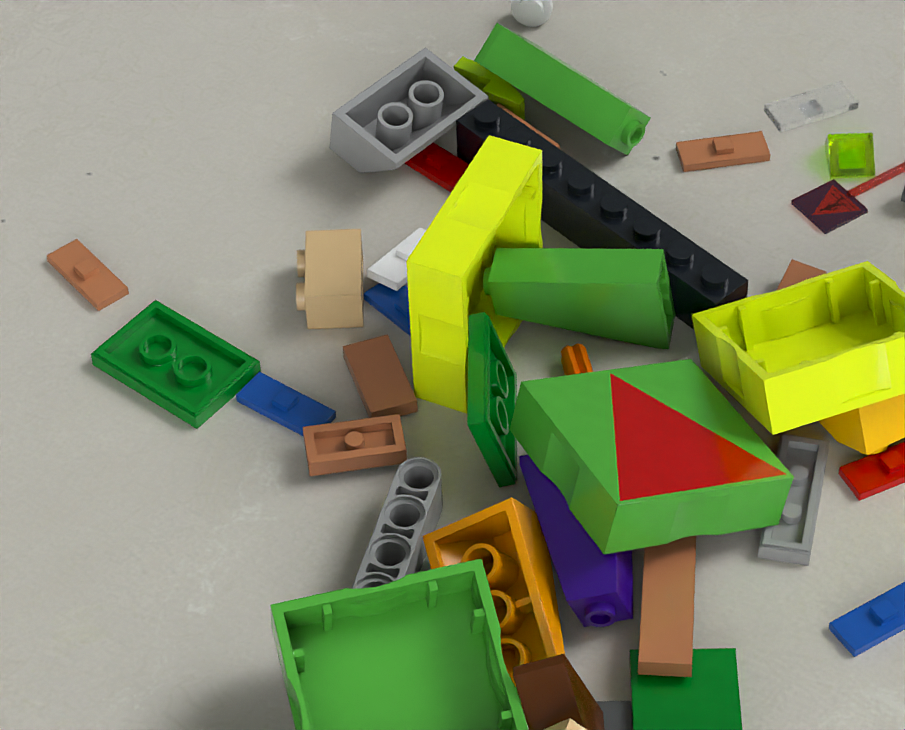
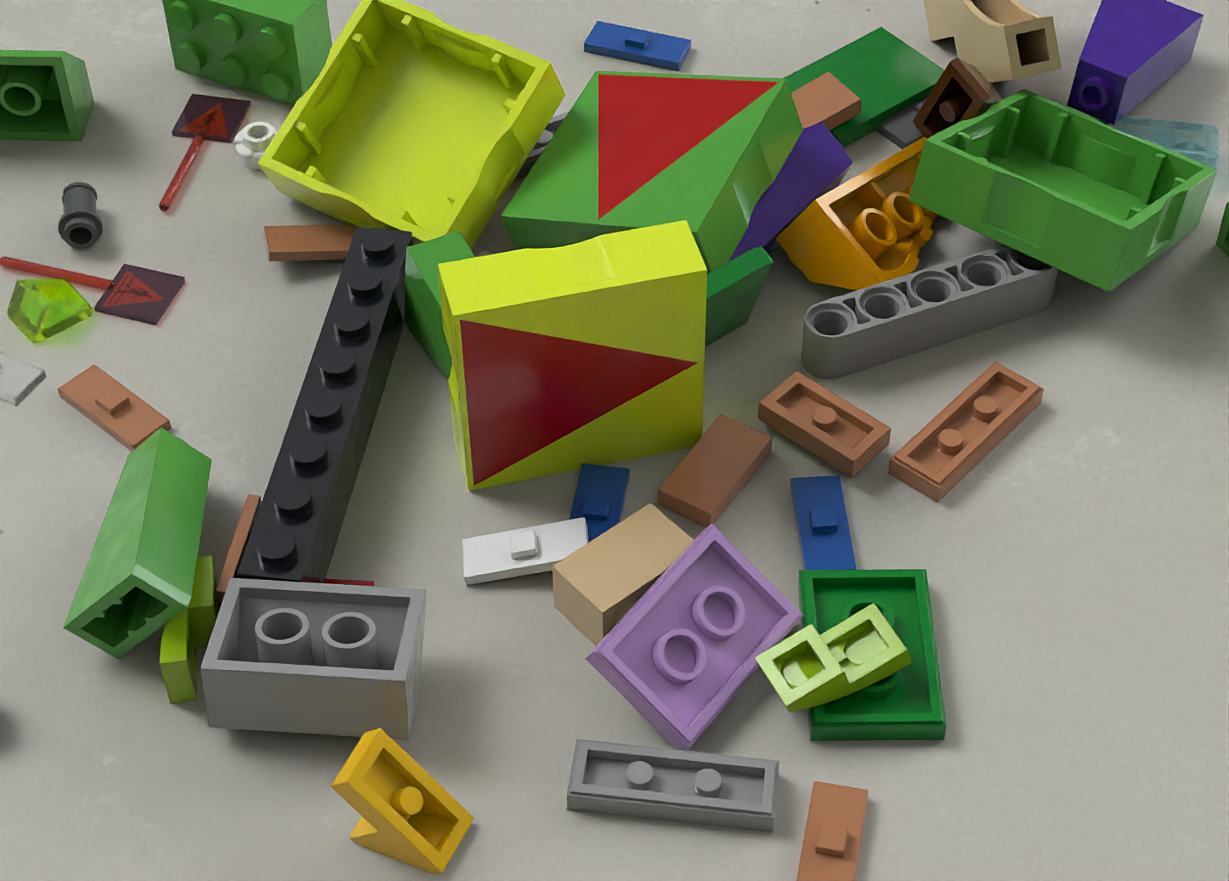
camera: 130 degrees left, 0 degrees up
(176, 320) = (828, 666): none -> lime slope
(190, 235) = (673, 785): none -> light grey tile
(255, 273) = (694, 638): none -> lavender tile
(278, 526) = (965, 431): none -> nougat tile
(282, 118) = (400, 805): none -> yellow slope

